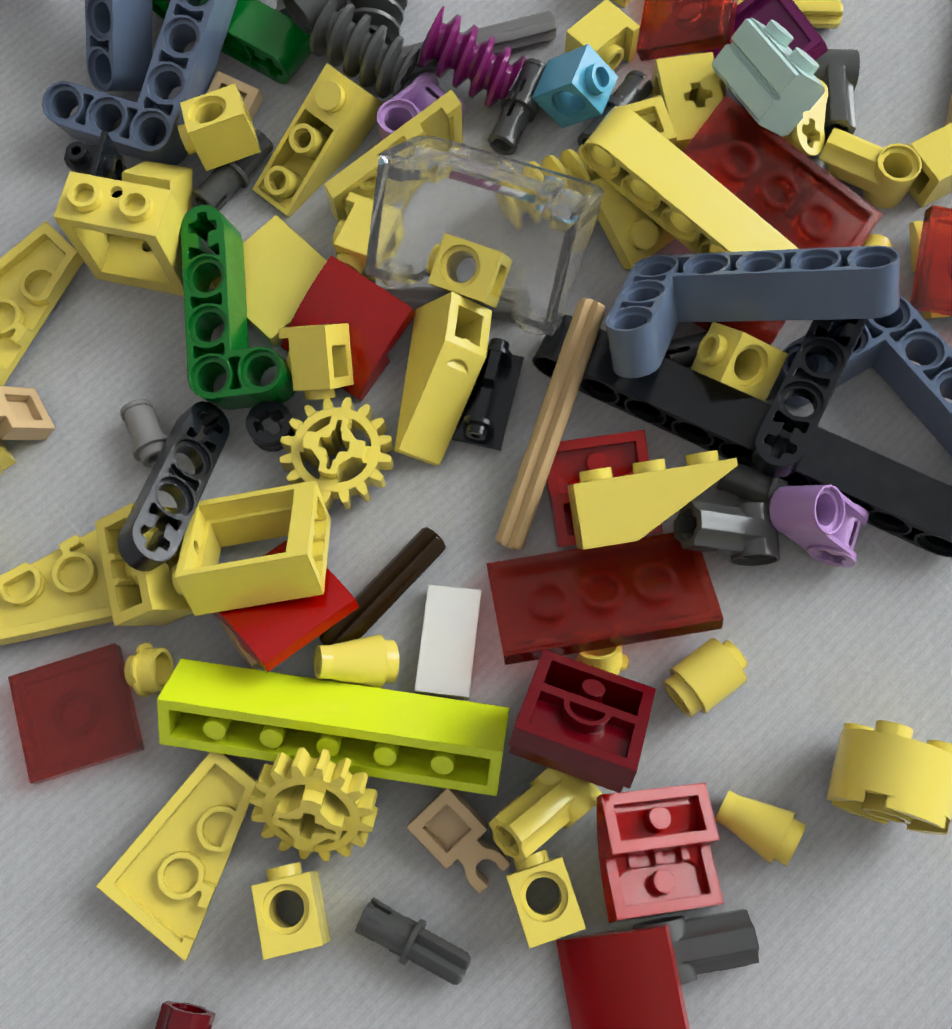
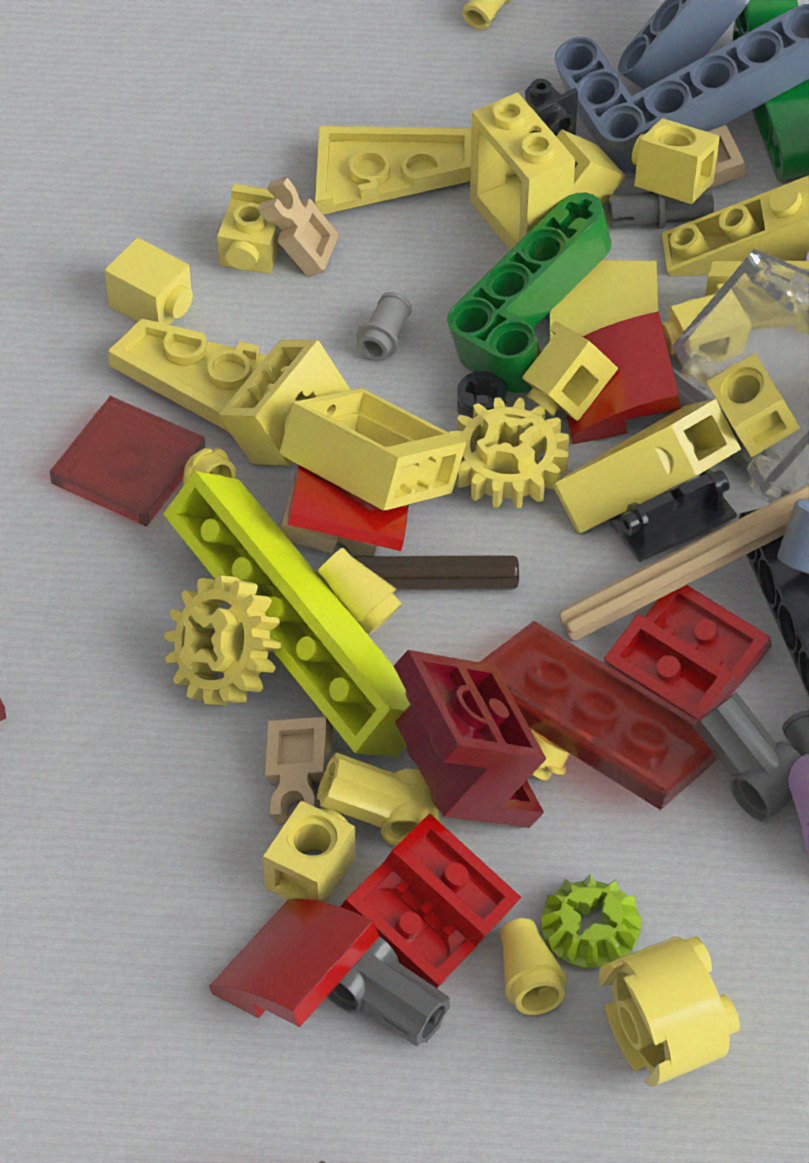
camera: 45 degrees right, 20 degrees down
(181, 854) = (98, 603): light yellow wing -> none
(182, 486) = (365, 360): black beam -> none
(277, 936) = (121, 720): light yellow brick -> none
(412, 942) = (187, 797): dark grey axle -> none
(448, 642) = (460, 632): white tile -> none
(630, 506) = (692, 664): light yellow slope -> none
(706, 677) = (609, 835): light yellow brick -> none
(744, 772) = (599, 943): none -> lime gear

